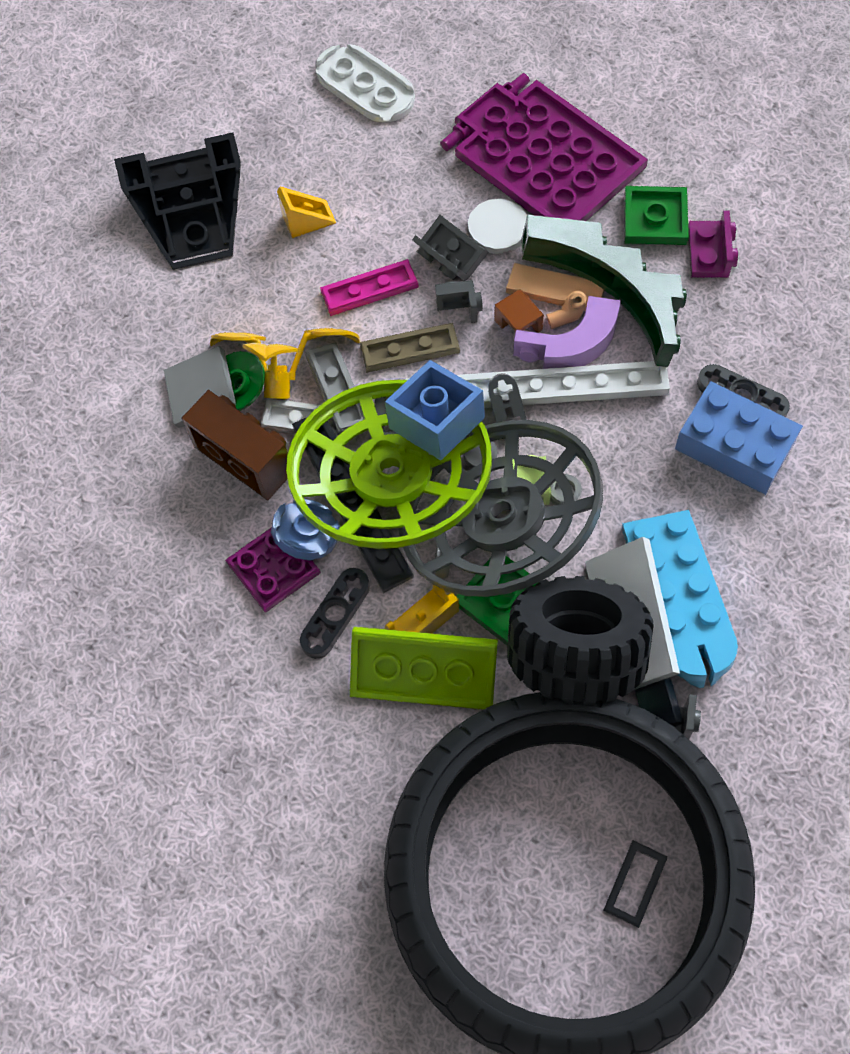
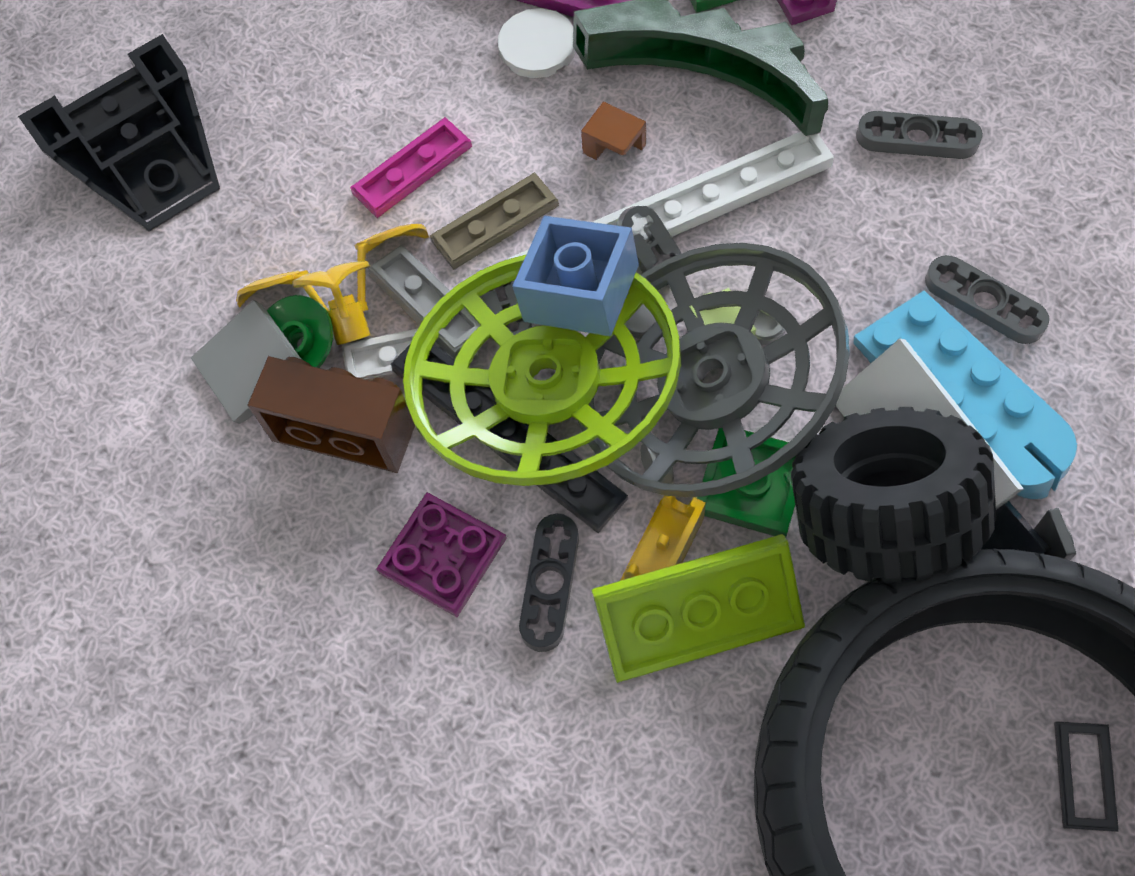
camera: 20 degrees left, 0 degrees up
(298, 536) = (461, 499): medium blue tile -> none
(303, 212) = (288, 105): yellow slope -> none
(452, 248) = (493, 85): dark grey bracket -> none
(459, 295) = (529, 137): dark grey bracket -> none
(549, 285) = (640, 90): light nougat tile -> none
(570, 311) = (672, 108): light nougat arm -> none
(576, 346) = (695, 151): lavender arch -> none
(733, 519) = (984, 283): none -> dark grey beam
(738, 437) = (943, 184): medium blue brick -> none

